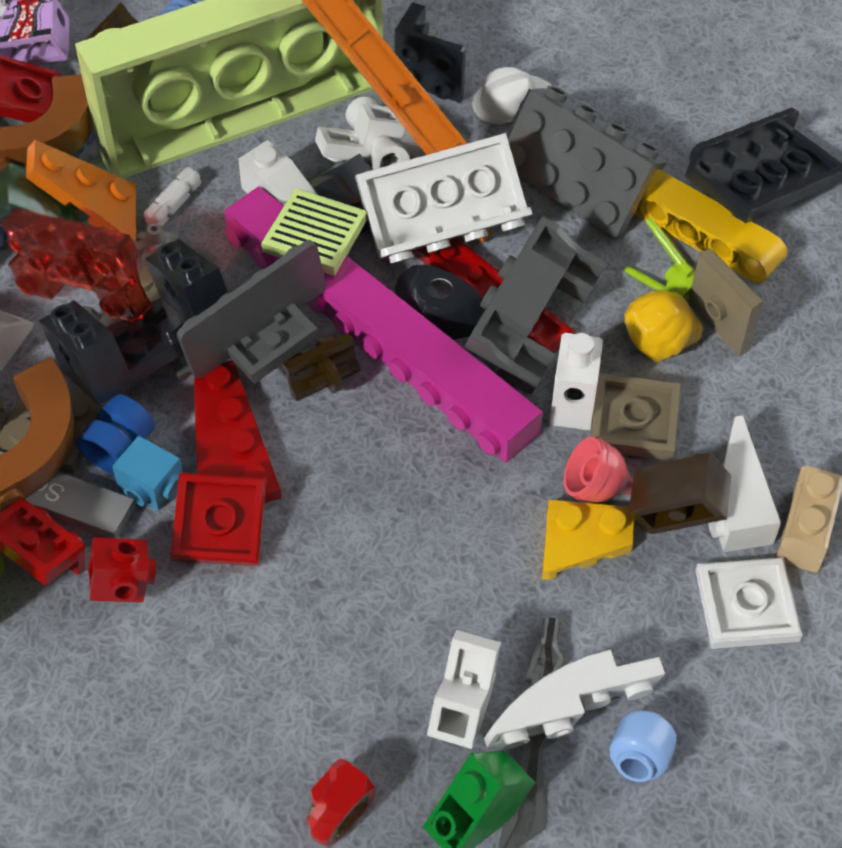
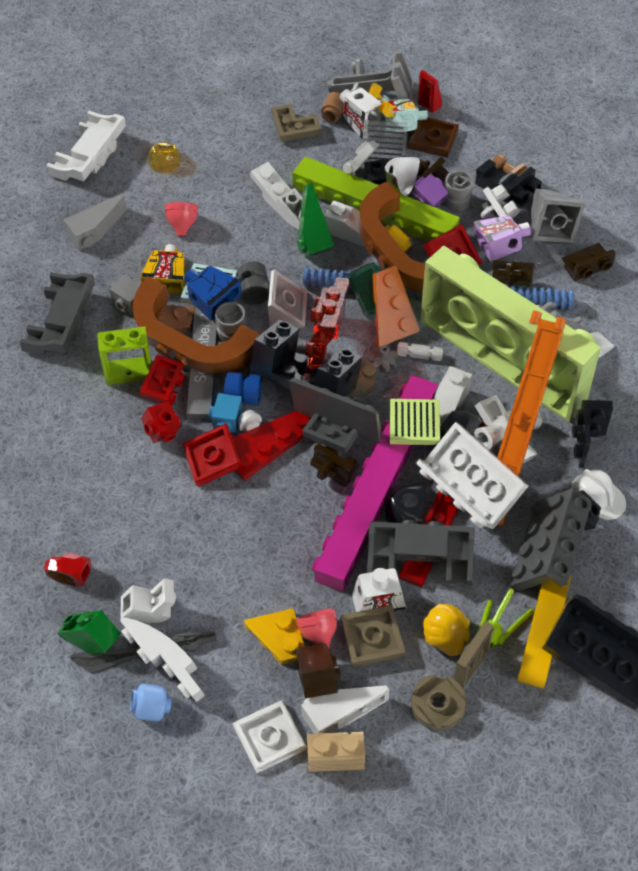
camera: 70 degrees right, 0 degrees up
(182, 446) = (249, 420): none -> white plate
(765, 396) = (435, 717): none -> dark tan plate

